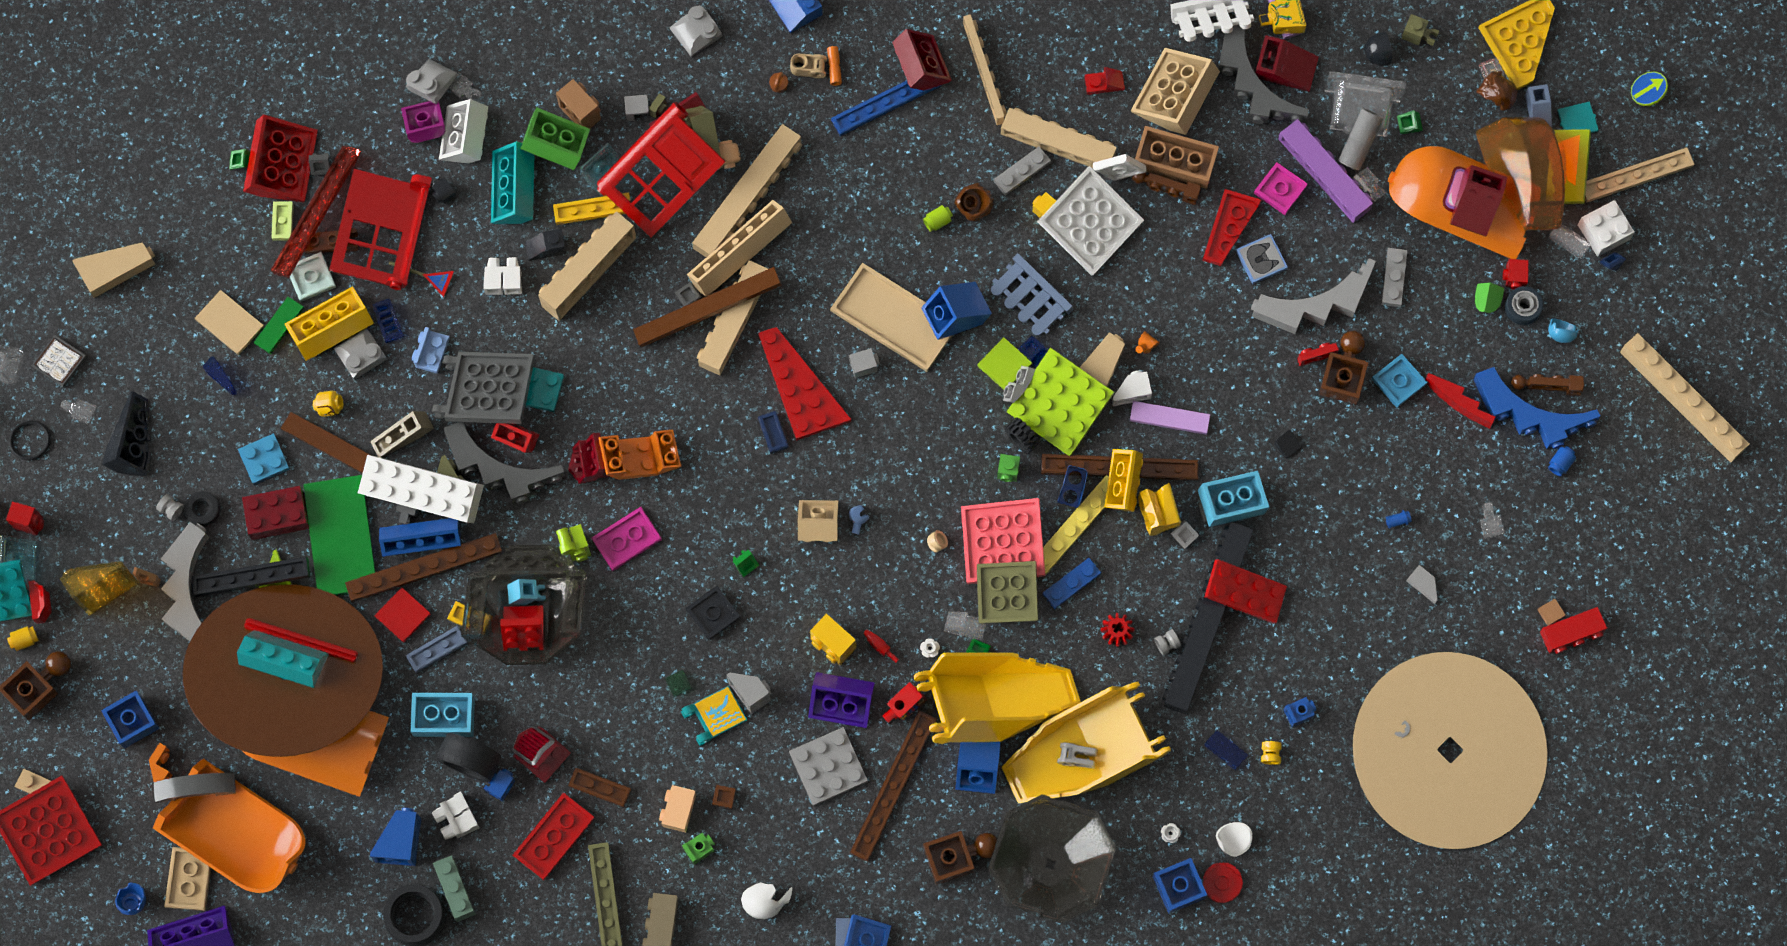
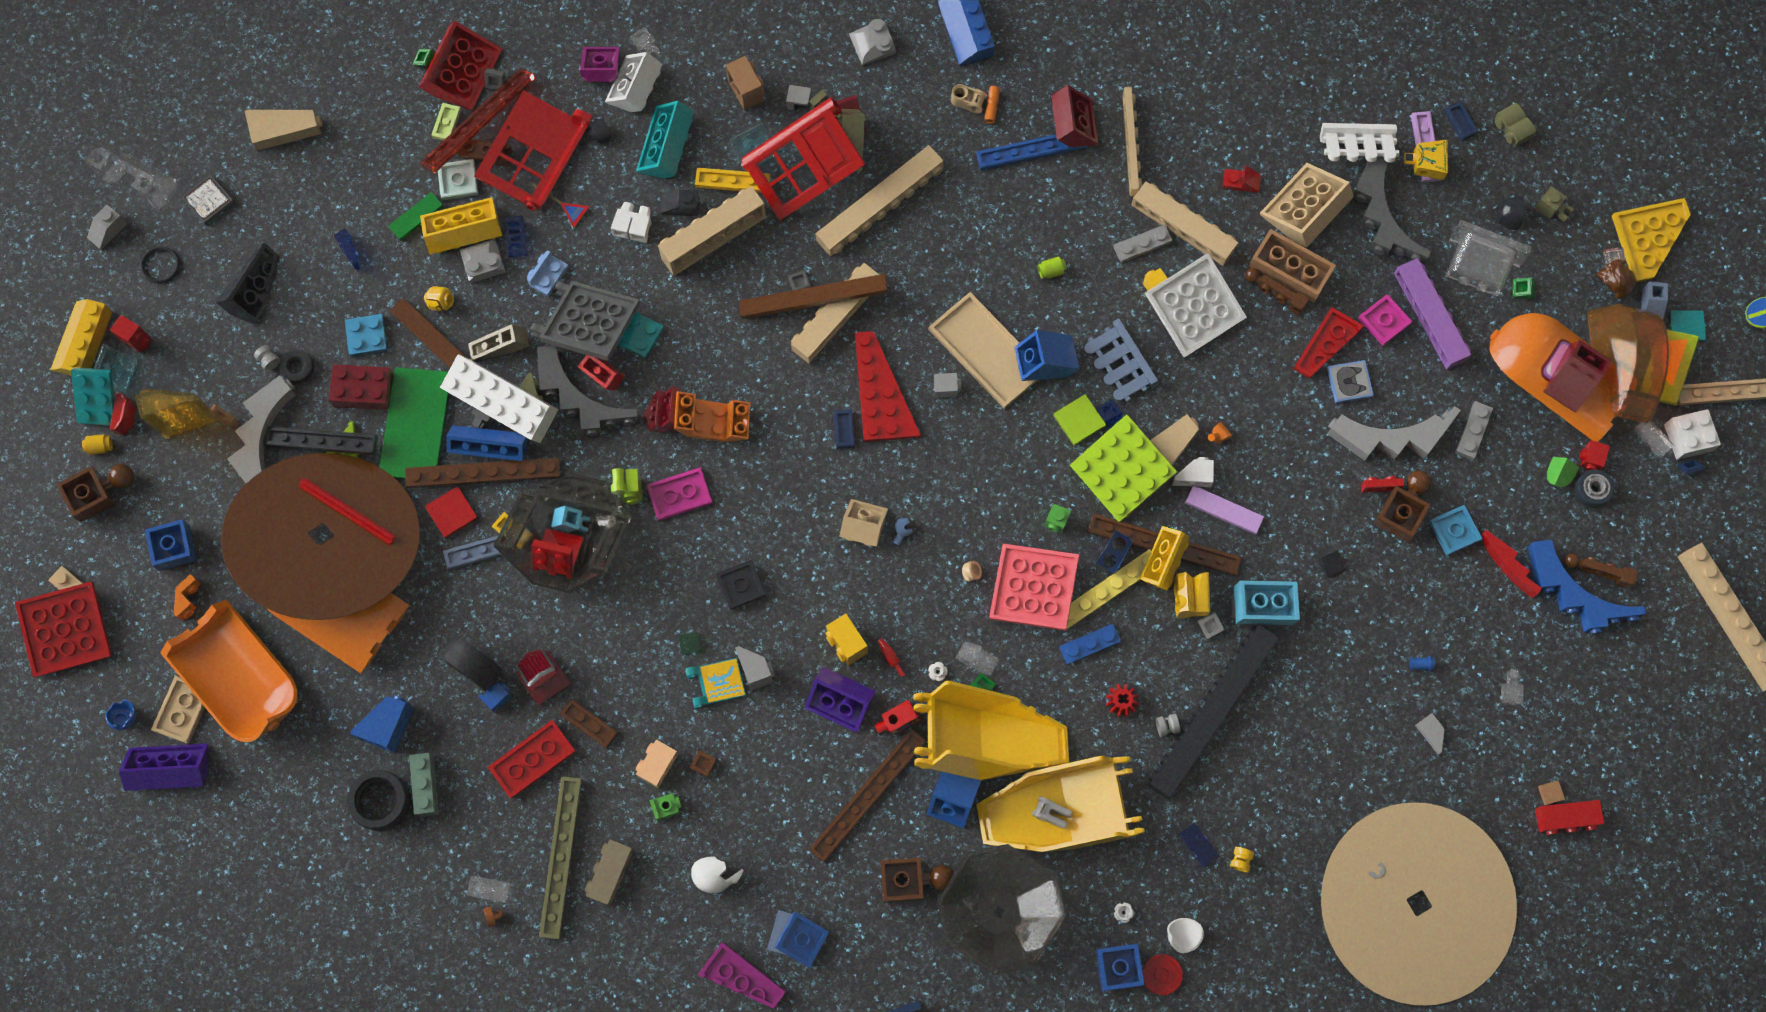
camera: 15 degrees right, 0 degrees up
(81, 411) = (213, 250): clear plate -> none
(194, 785) = (209, 623): dark grey slope -> none
(229, 322) = (371, 202): tan tile -> none
(281, 658) = (322, 523): teal slope -> none
(430, 80) = (616, 29): light grey slope -> none
(442, 714) = (460, 615): medium azure brick -> none
(458, 815) = (448, 716): white hips -> none
(555, 138) = (714, 107): bright green brick -> none
(730, 153) = (873, 160): light nougat head -> none
(739, 248) = (858, 249): tan brick -> none
(745, 563) = (784, 545): green tile -> none
(778, 82) = (936, 107): dark orange tile -> none
(828, 766) = (810, 760): light grey plate -> none
(974, 202) = (1090, 261): reddish brown hair -> none
(1007, 592) = (1025, 637): olive plate -> none
(1015, 390) = (1082, 446): light grey slope -> none
(1022, 435) = (1078, 491): black tyre -> none
(1119, 167) = (1236, 261): white tile -> none
(1245, 591) = (1256, 695): red plate -> none
(1286, 64) = (1419, 204): dark red slope -> none
(1294, 716) = (1274, 830): blue brick -> none
(1361, 135) = (1479, 285): light grey piece -> none
(1368, 182) = (1471, 334): clear plate -> none
(1562, 331) = (1626, 522): dark azure hair -> none
(1562, 461) = (1596, 647): blue brick -> none

